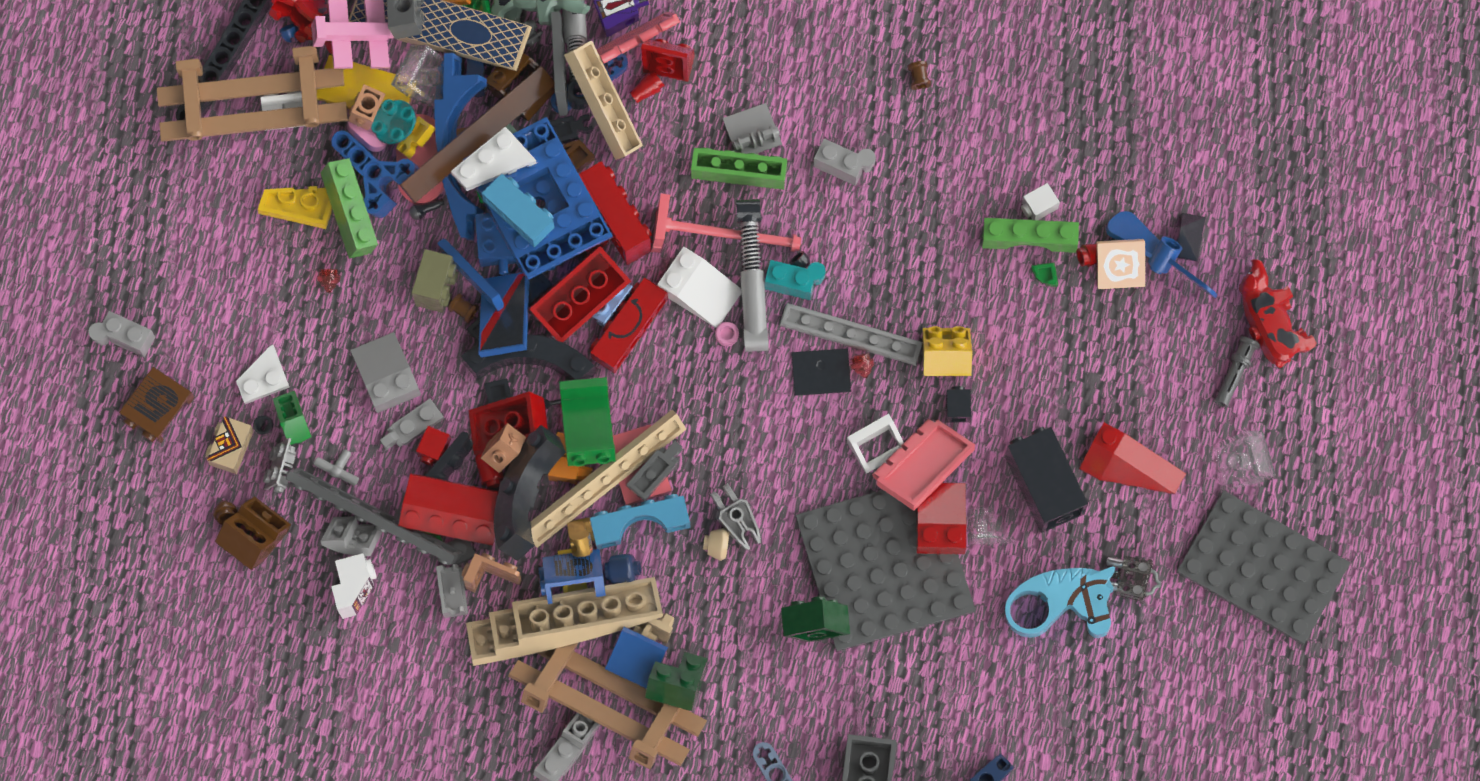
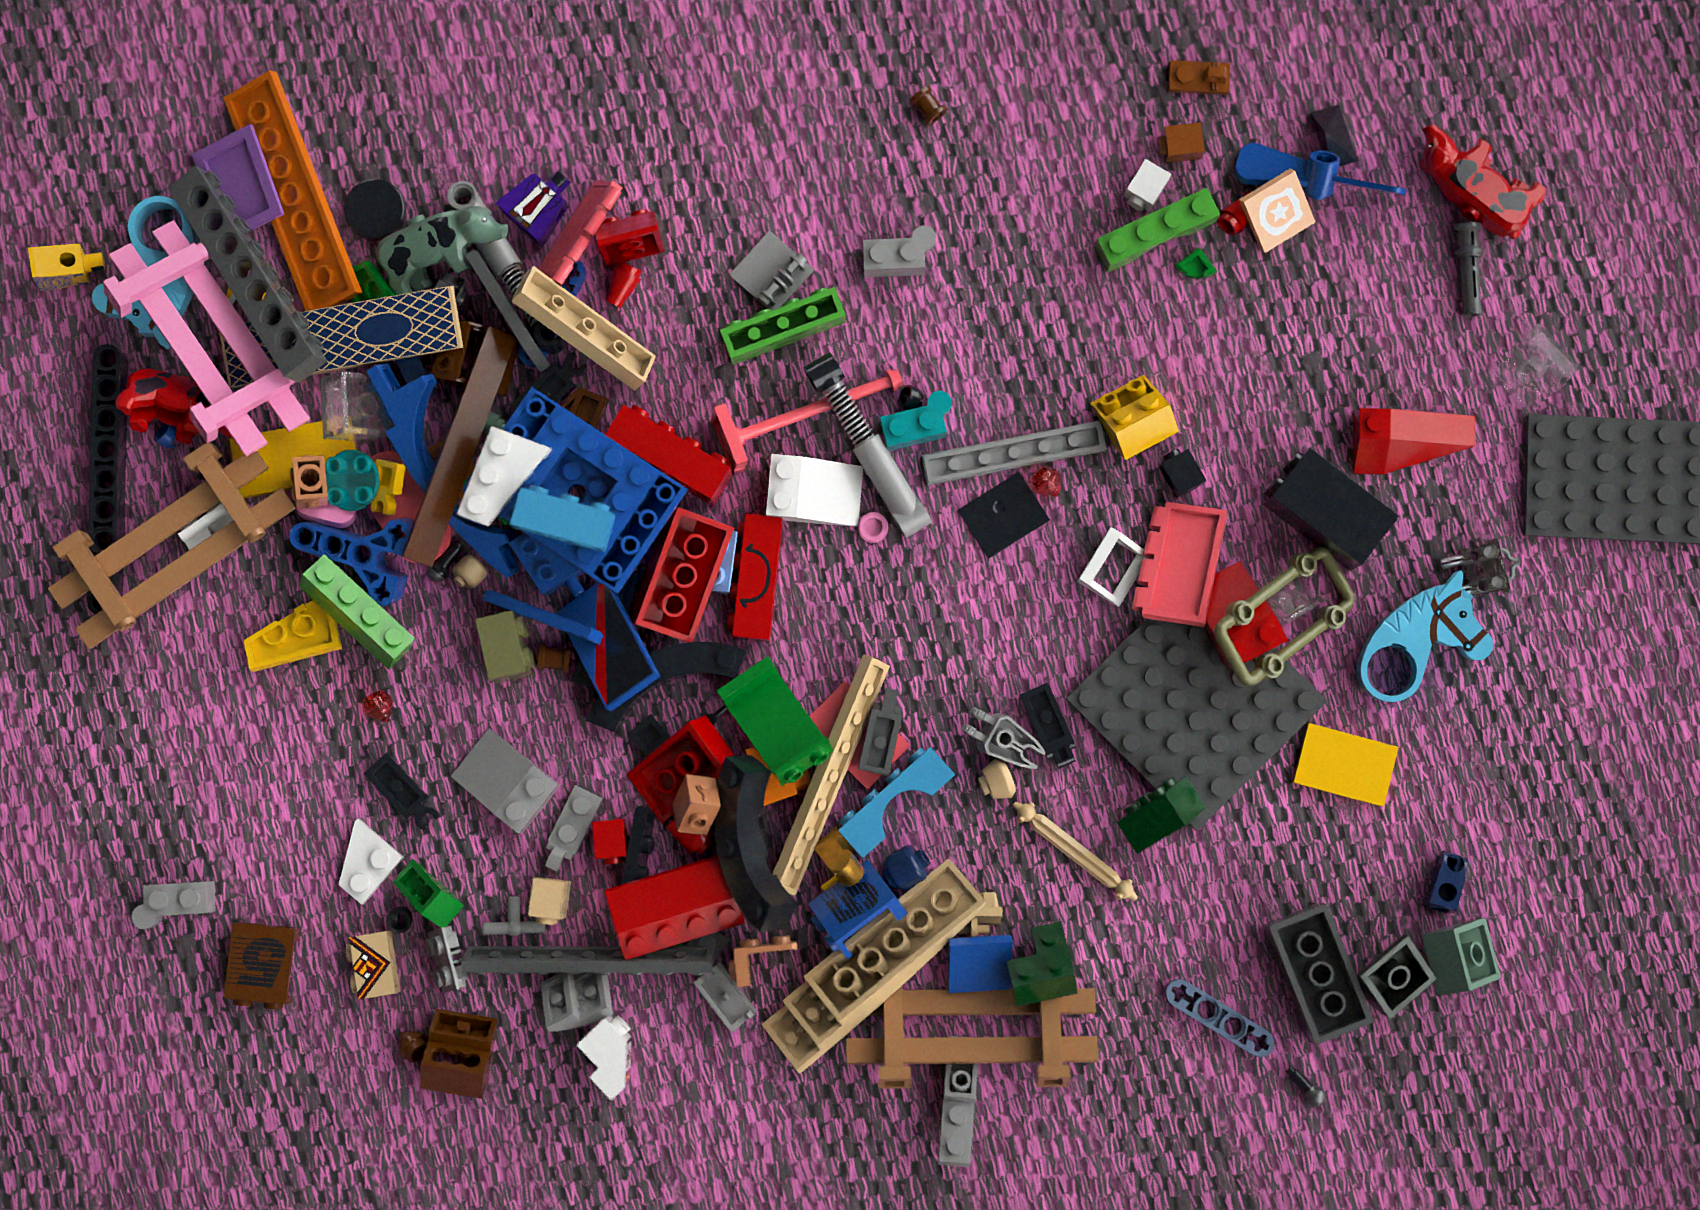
camera: 30 degrees left, 10 degrees up
(312, 340) = (400, 789): none -> black plate
(370, 461) = (549, 900): none -> tan brick
(438, 222) = (469, 572): none -> tan piece
(745, 620) = (1075, 851): none -> tan wheel
(774, 526) = (1049, 724): none -> black hinge
(943, 510) = (1242, 611): none -> olive bar
(964, 661) = (1345, 764): none -> yellow tile
(1079, 186) = (1181, 142): none -> dark orange brick
(1117, 150) = (1199, 77): none -> dark orange hinge

